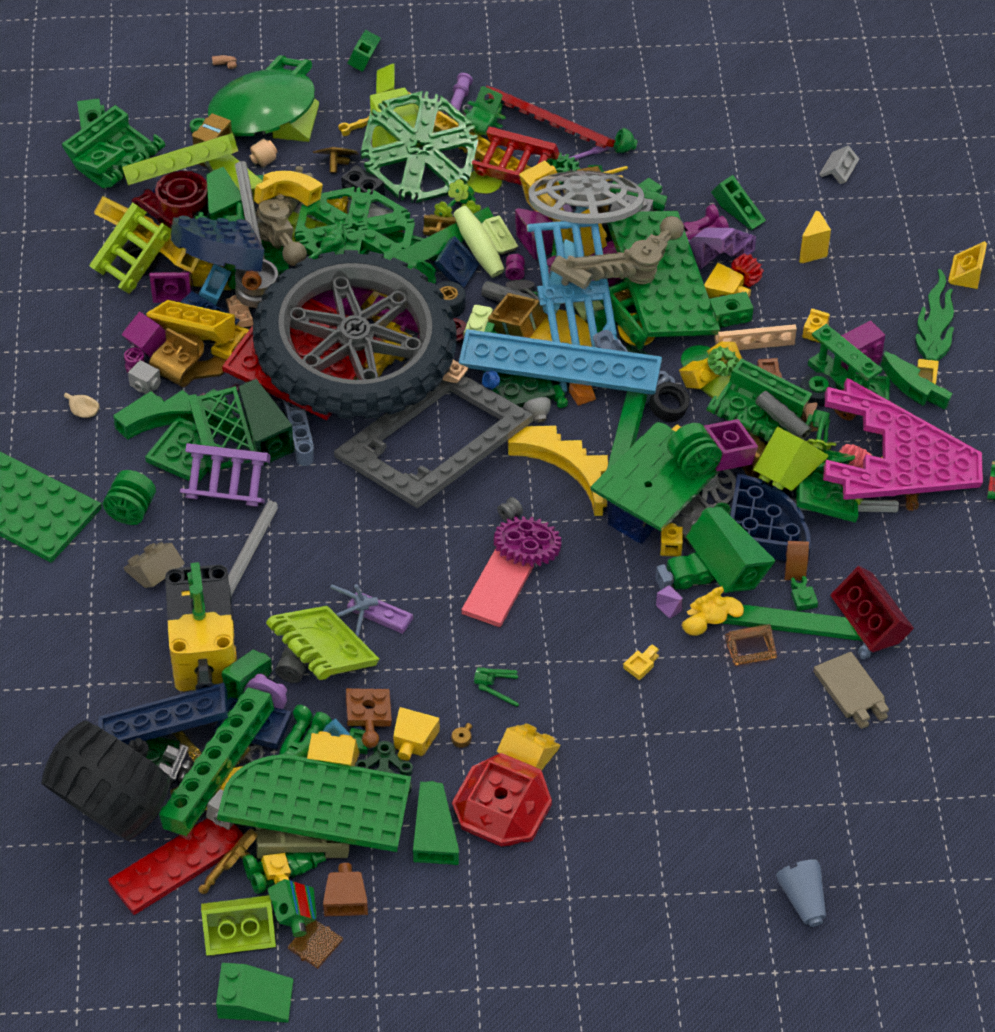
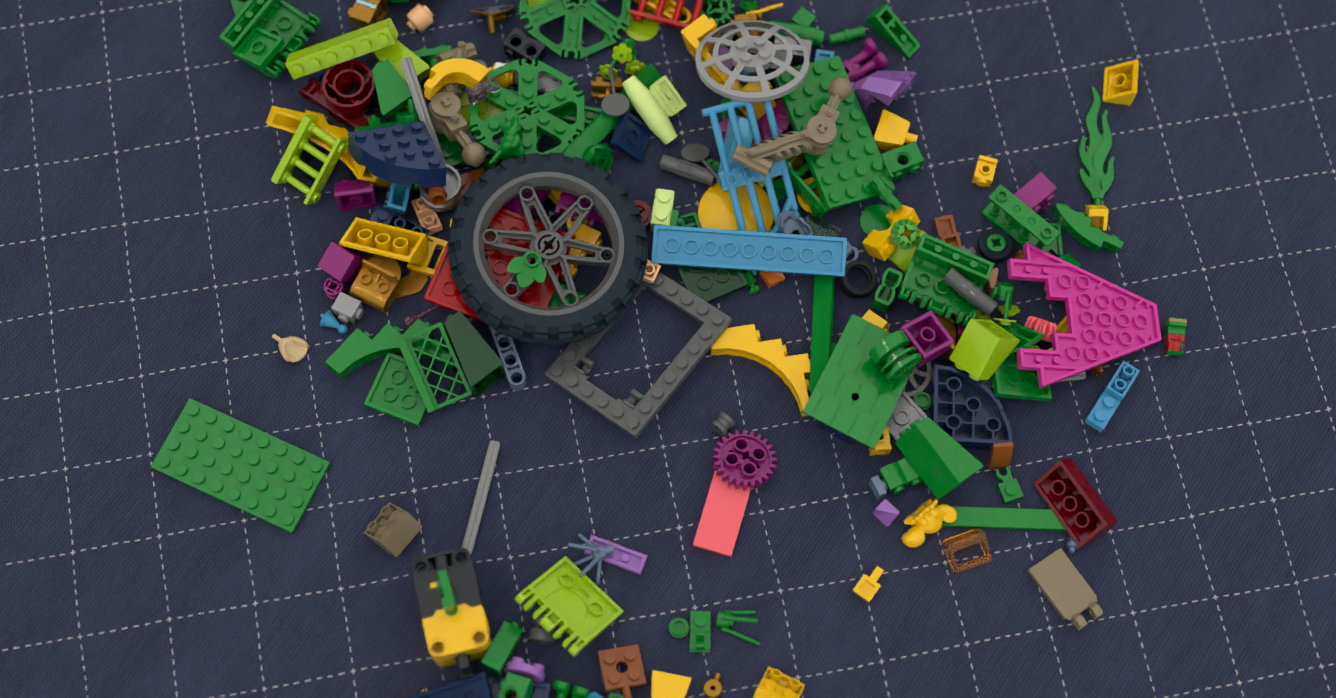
camera: 10 degrees left, 20 degrees up
(124, 387) = (330, 320): none -> dark azure piece
(129, 497) = (357, 457): green wheel -> none
(217, 455) = (455, 403): medium lavender fence -> none
(309, 203) = (480, 91): none -> plate
(330, 340) = (525, 271): none -> green plate
(434, 680) = (678, 627): none -> green plate
(444, 229) = (615, 103): none -> dark grey piece
(454, 295) = (634, 174): black wheel -> none
(456, 687) = (700, 631): none -> green plate
(490, 380) = (684, 277): blue plate -> none
(515, 267) = (687, 132): magenta wheel -> none
(517, 316) = (699, 198): pearl gold container -> none
(526, 217) = (698, 92): magenta slope -> none
(539, 408) = (733, 302): light grey brick -> none
(690, 204) = (846, 35): none -> green pin
(696, 410) = (886, 291): none -> green brick
(708, 327) = (886, 193): none -> green pin
(748, 268) = (912, 112): red gear -> none
(759, 337) = (931, 189): light nougat fence -> none
(815, 239) = (975, 69): yellow slope -> none
(925, 525) = (1112, 396): none -> dark azure slope

